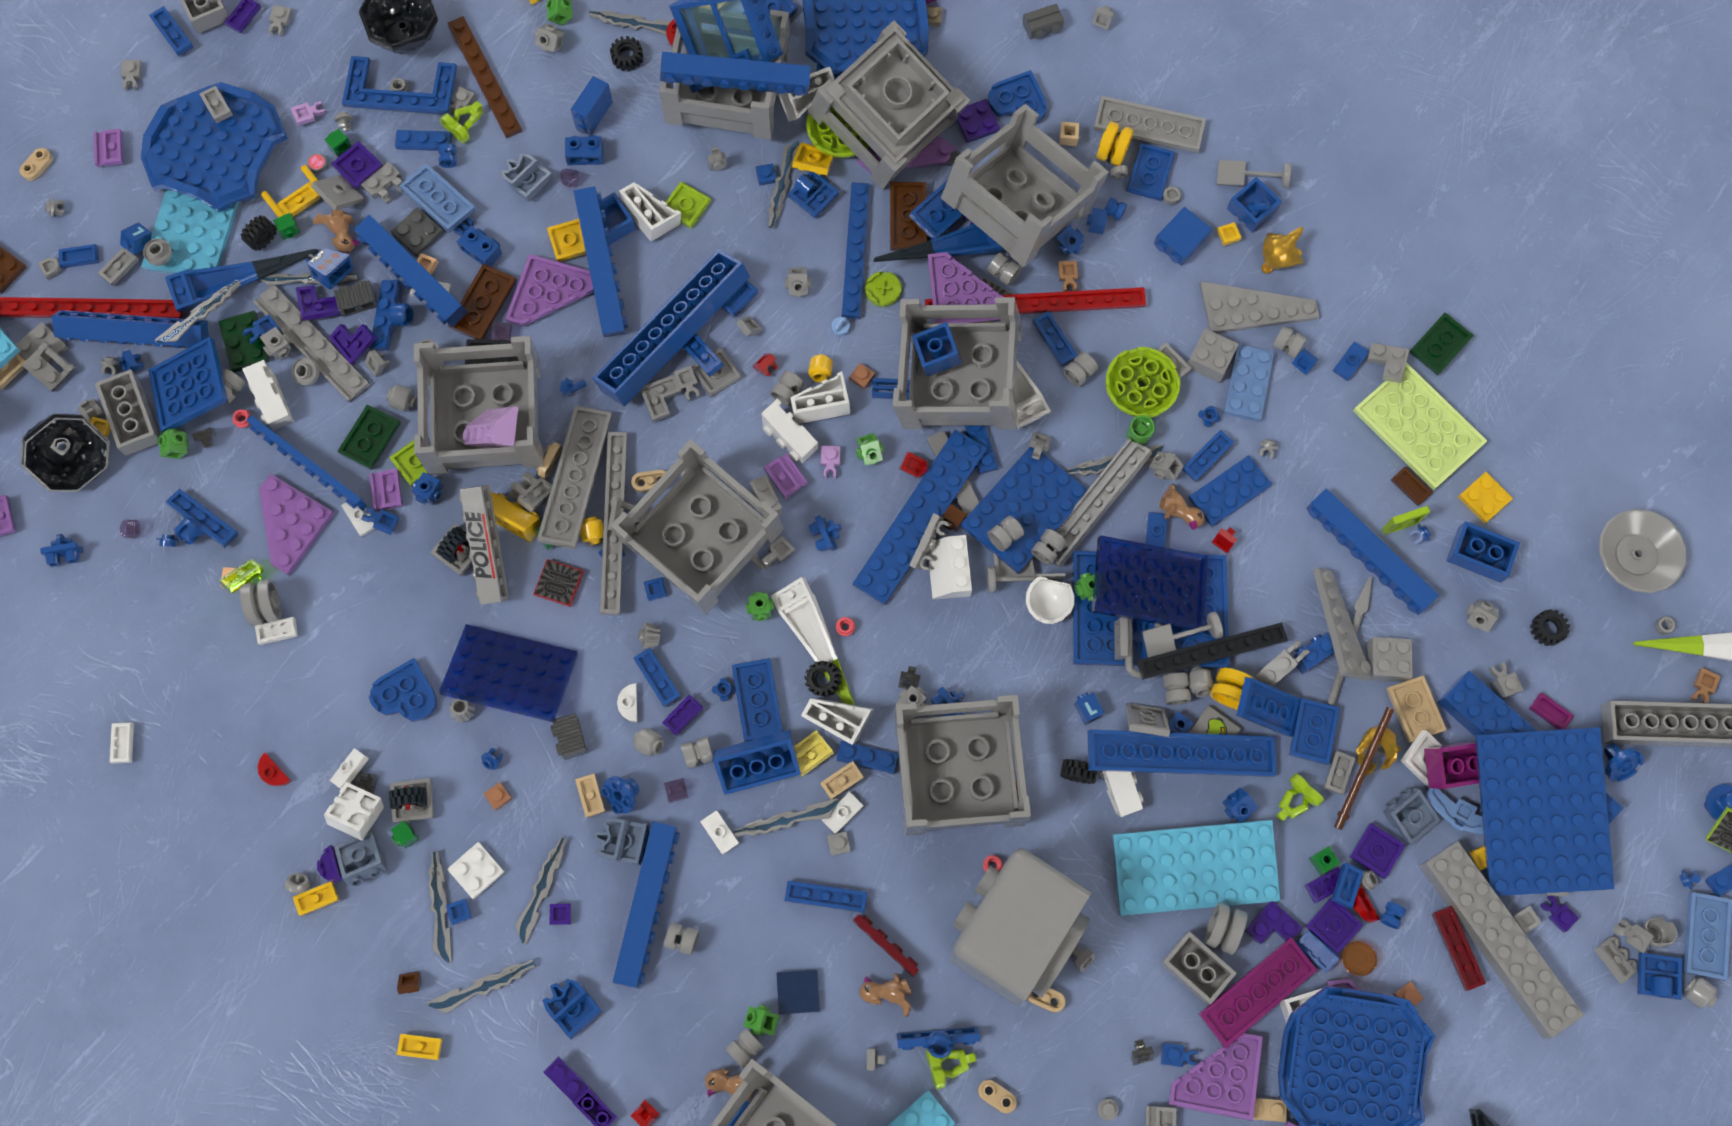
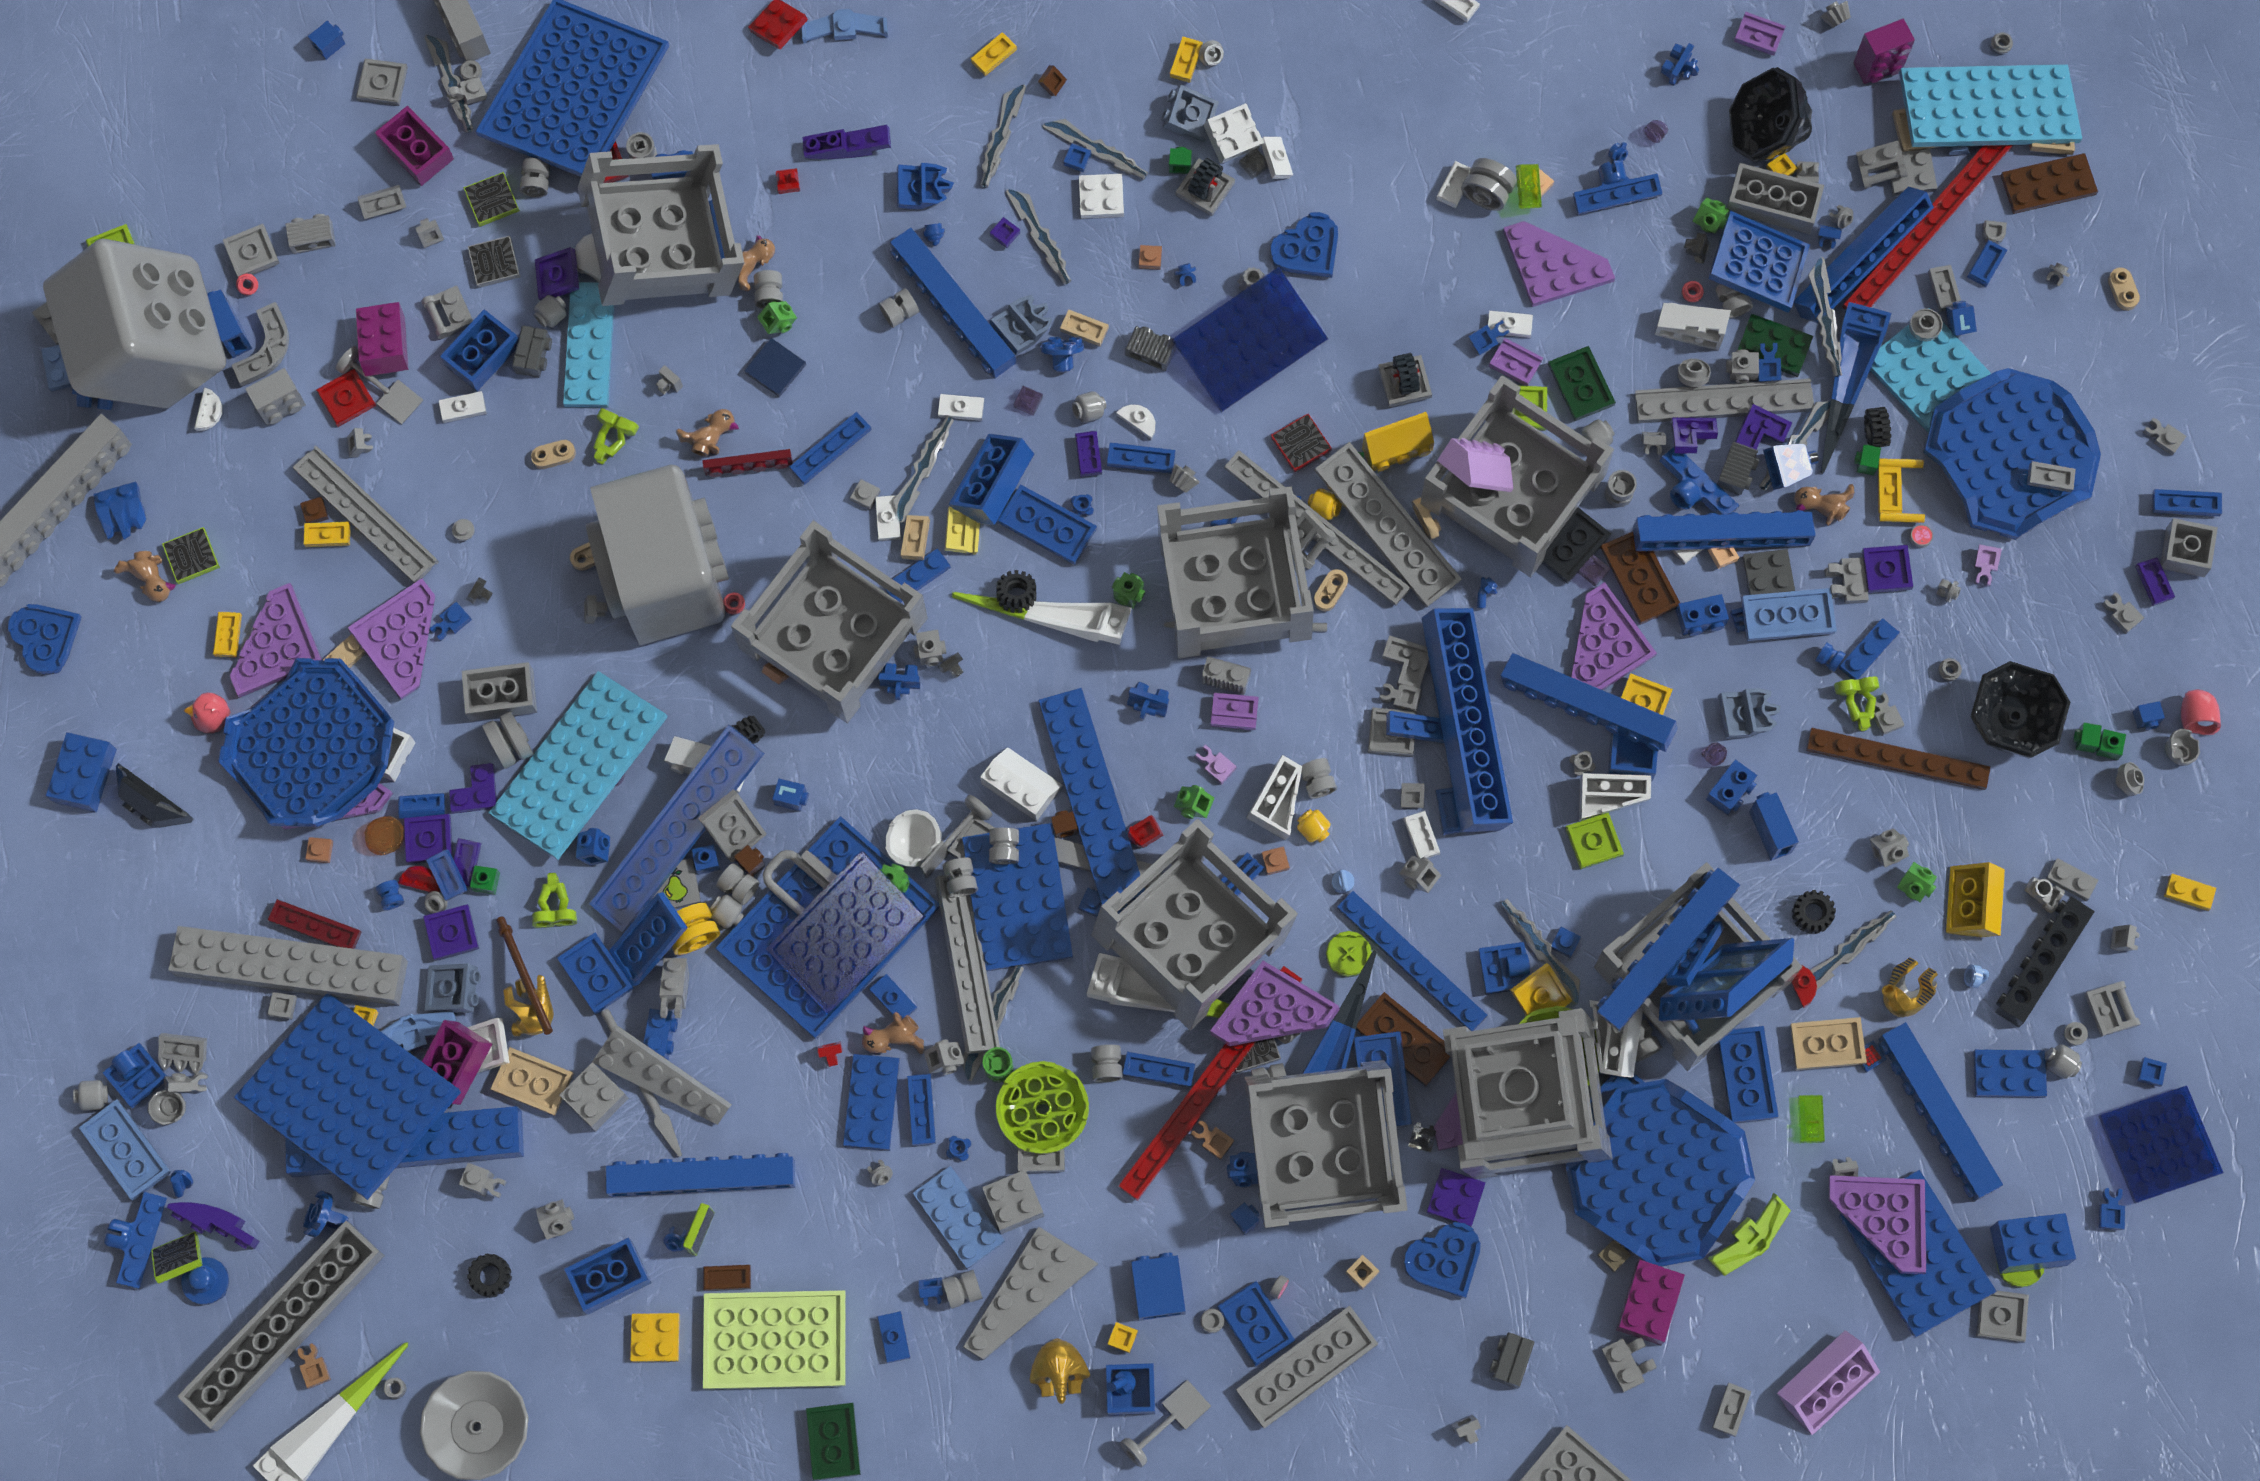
camera: 135 degrees right, 0 degrees up
(108, 147) = (2090, 361): medium lavender plate -> none
(271, 773) = (1328, 97): red plate -> none
(310, 467) = (1588, 311): blue plate -> none
(328, 865) = (1205, 85): dark purple tile -> none
(337, 142) = (1927, 567): green plate -> none
(337, 192) = (1866, 527): light grey plate -> none
(358, 97) = (1900, 687): blue plate -> none
(427, 489) = (1480, 390): blue brick -> none
(484, 544) = (1382, 394): light grey brick -> none
(536, 492) = (1399, 478): light grey plate -> none
(600, 966) = (934, 233): none -> blue plate
(640, 242) = (1584, 756): none -> light grey plate
(697, 752) = (1043, 438): light grey wheel -> none
(717, 160) = (1615, 901): light grey plate -> none
(763, 363) = (1362, 778): red tile -> none
(770, 302) = (1421, 835): none -> white plate
(779, 550) = (1166, 648): light grey plate -> none
(788, 432) = (1271, 743): white wedge -> none
(838, 718) = (970, 573): white wedge -> none
(845, 620) = (1048, 644): coral plate -> none
(928, 542) = (1058, 778): light grey plate -> none
(937, 349) = (1227, 922): blue brick -> none
(938, 1042) = (636, 440): blue plate -> none
(1039, 443) = (1068, 962): light grey plate -> none
(1115, 208) = (1248, 1244): blue wheel -> none
(1116, 144) = (1311, 1302): yellow wheel -> none
(1154, 695) = (750, 860): none -> reddish brown plate
(1161, 640) = (787, 901): light grey piece -> none
(1212, 651) = (740, 940): black plate -> none
(1257, 992) = (436, 724): magenta plate -> none
(1339, 773) = (542, 960): light grey plate -> none
(1392, 357) = (859, 1376): light grey plate -> none
(1551, 711) = (420, 1204): magenta tile -> none
(1560, 915) = (257, 1041): dark purple plate -> none
(1693, 840) = (208, 1217): none -> dark purple slope

